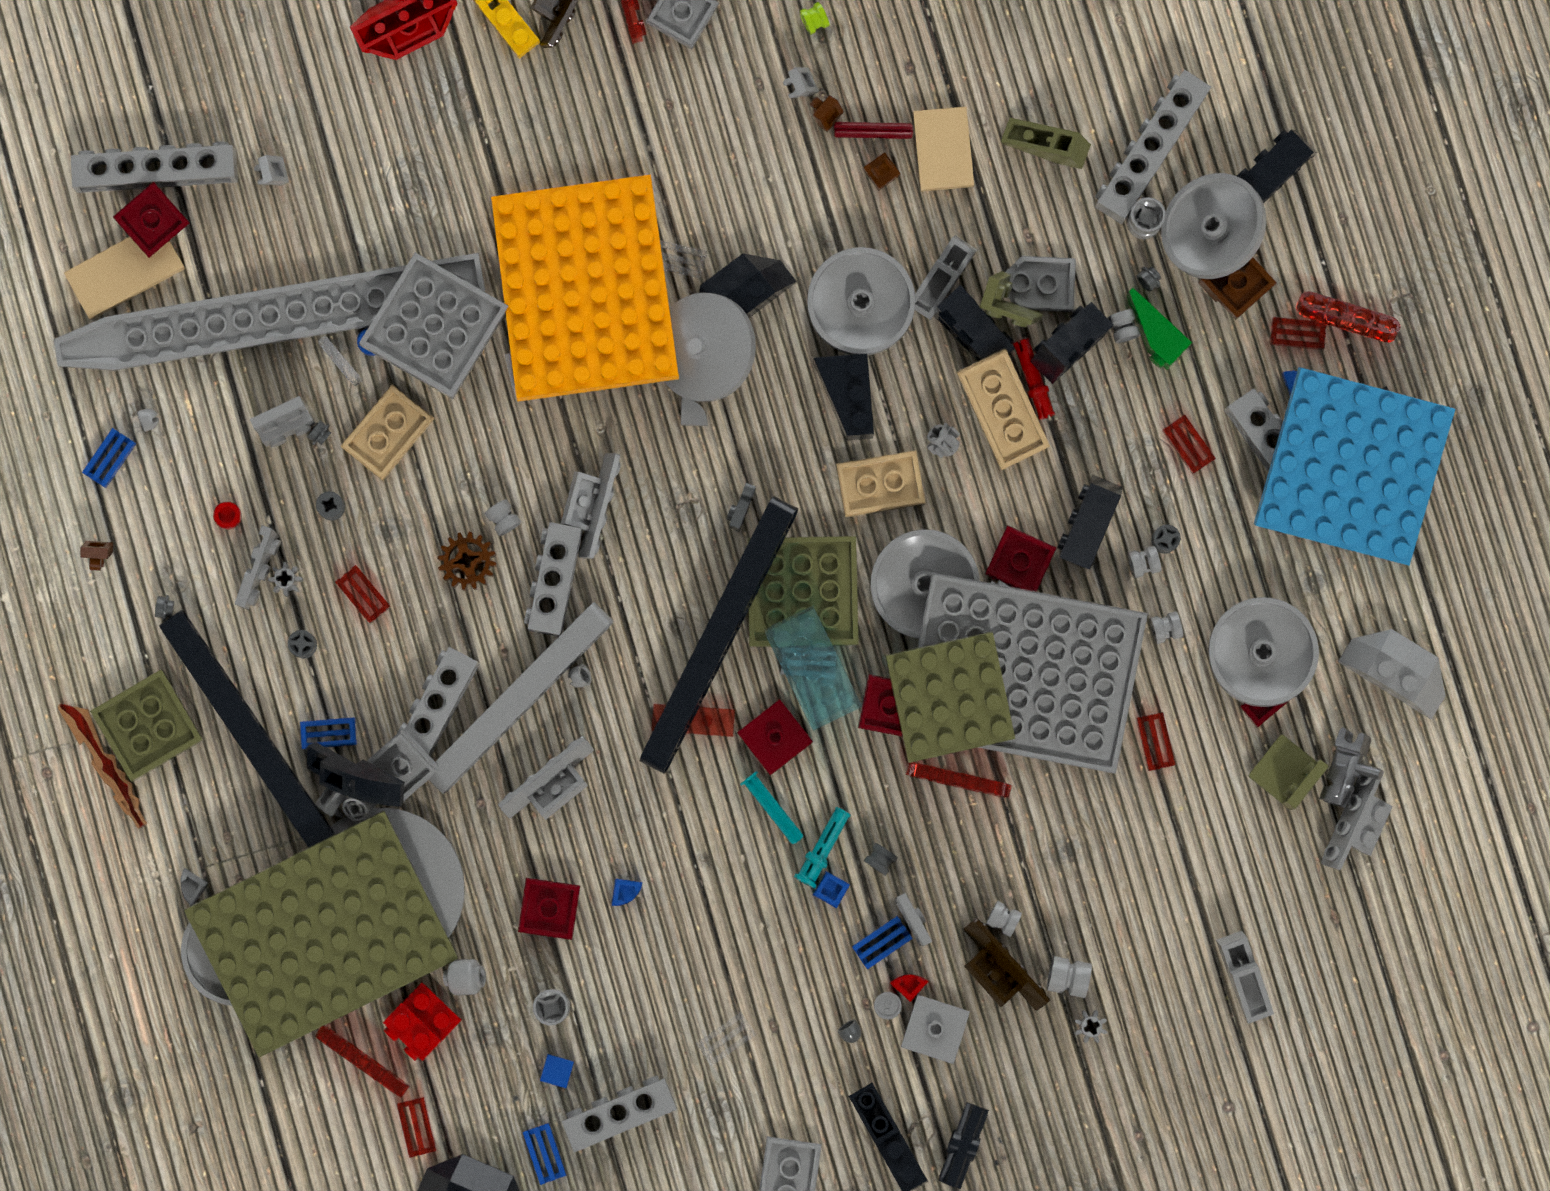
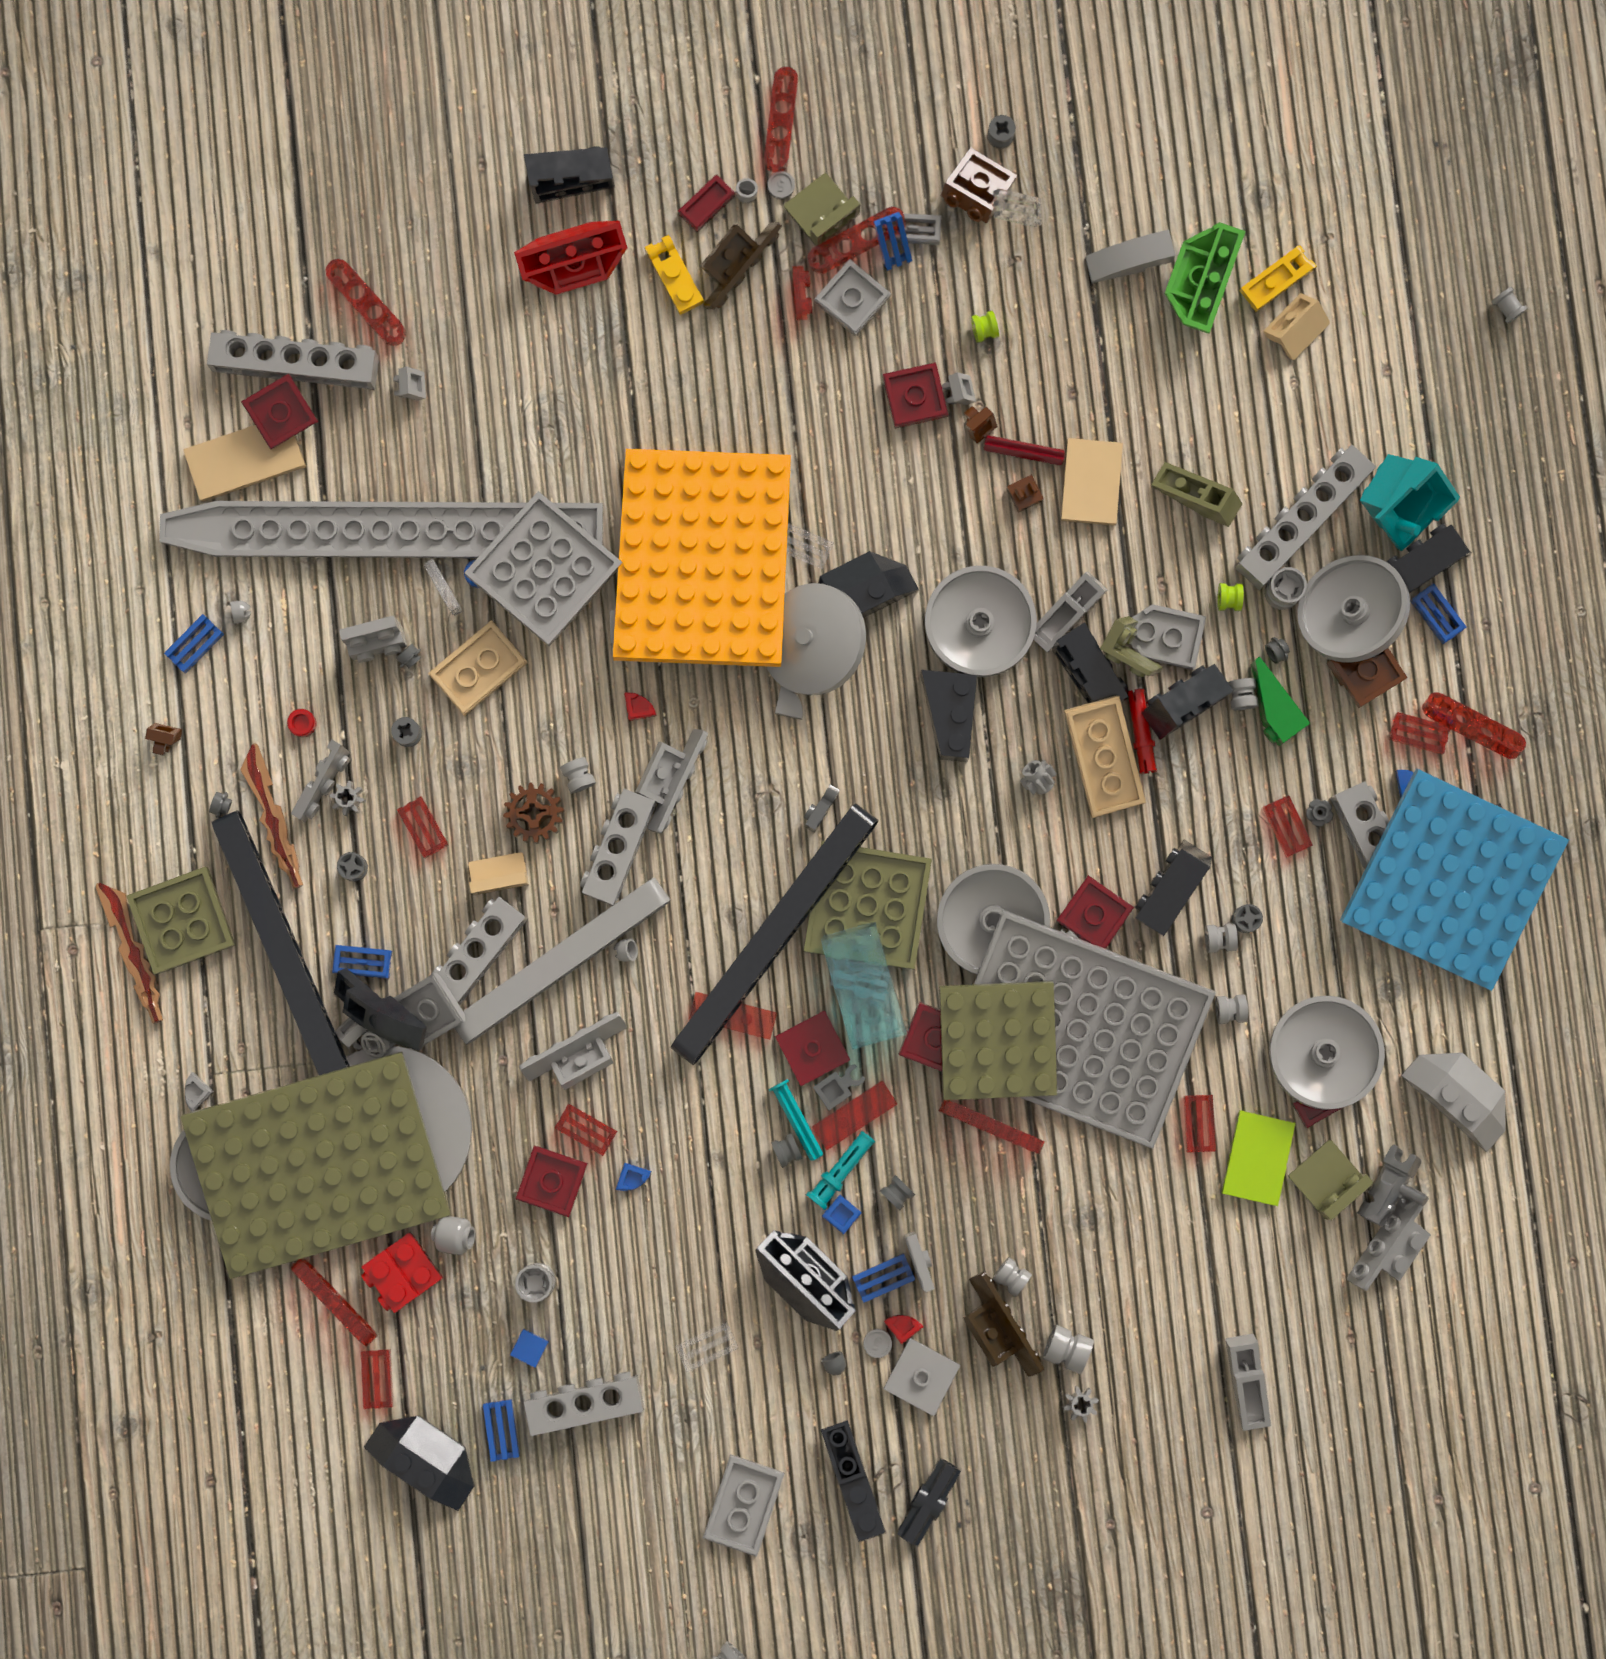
camera: 15 degrees right, 0 degrees up
(215, 97) = (365, 302): none -> clear red beam
(216, 611) = (272, 818): none -> medium nougat sword
(443, 625) = (498, 873): none -> tan panel
(548, 442) = (638, 707): none -> red tile
(594, 861) = (565, 1117): none -> clear red tile
(759, 96) = (915, 395): none -> dark red plate
(768, 838) = (786, 1150): none -> dark grey wheel
(803, 772) = (835, 1089): none -> dark grey plate
(808, 956) = (806, 1279): none -> black wedge
(826, 793) = (854, 1115): none -> clear red tile
(880, 484) = (967, 810): tan tile -> none
(1095, 235) = (1230, 597): none -> lime wheel
(1216, 433) = (1314, 818): none -> dark grey plate
(1217, 764) = (1258, 1158): none -> lime tile
(1246, 111) = (1408, 497): none -> teal piece
(1288, 223) = (1443, 638): none -> blue tile

